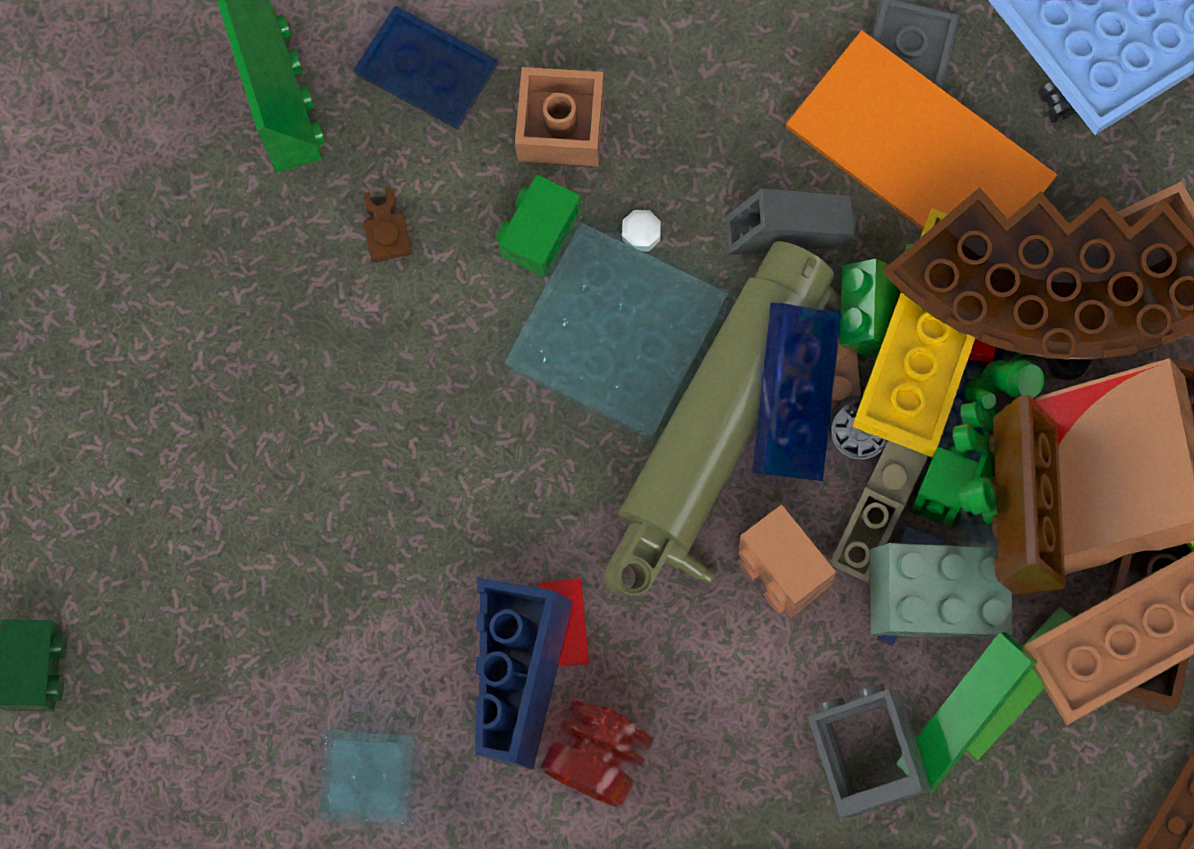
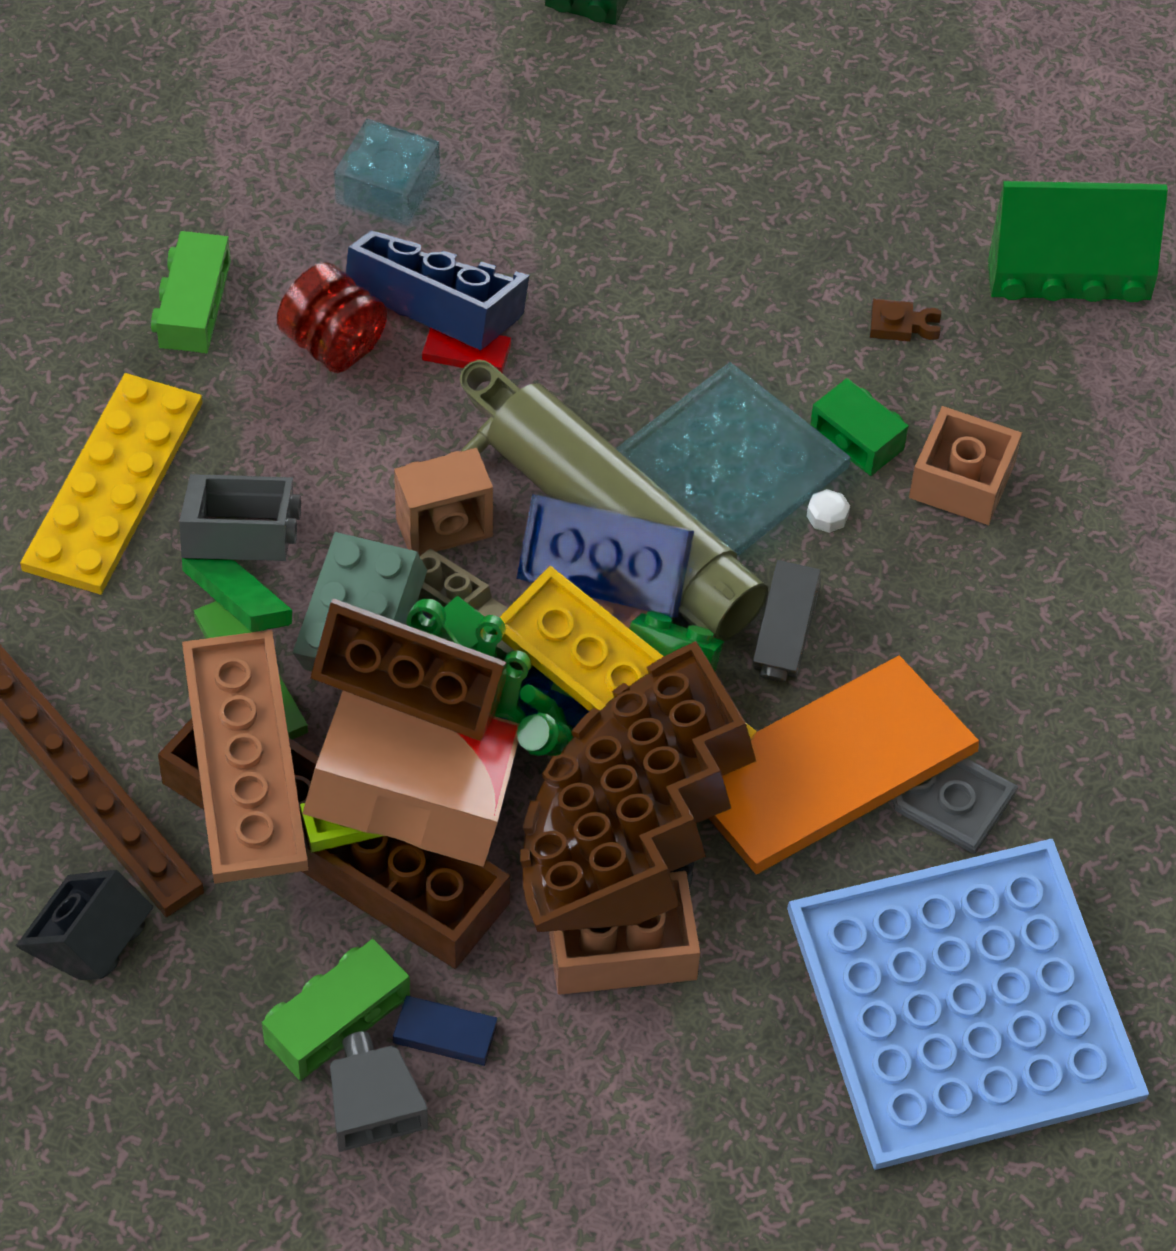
camera: 100 degrees right, 20 degrees down
(426, 67) = (1060, 394): clear blue tile -> none

